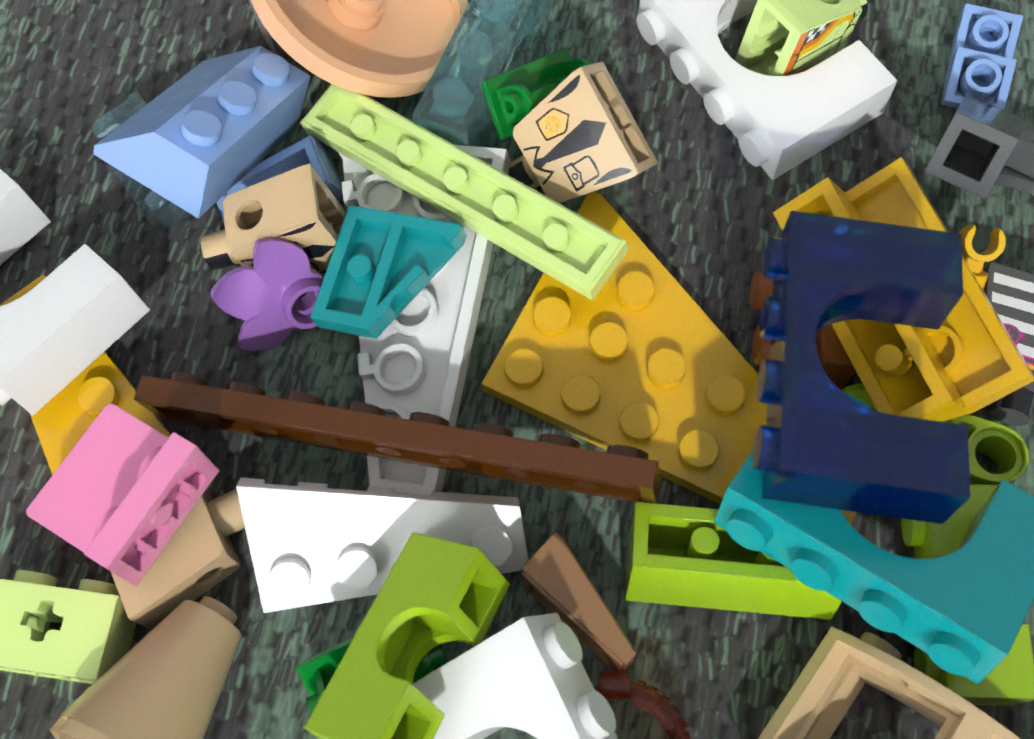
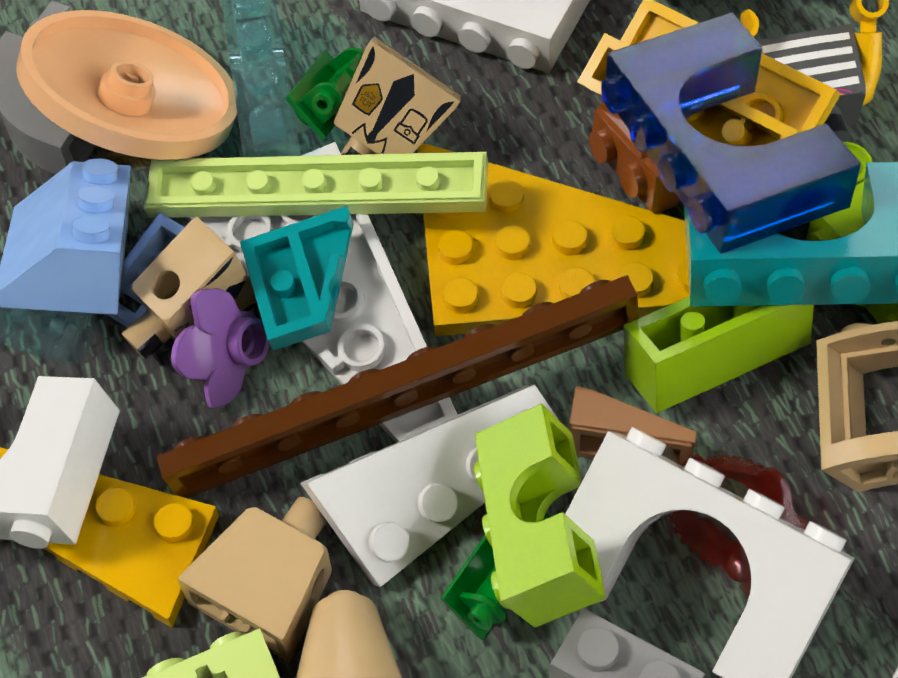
camera: 35 degrees left, 10 degrees down
(123, 492) = (212, 541): bright pink bracket -> none

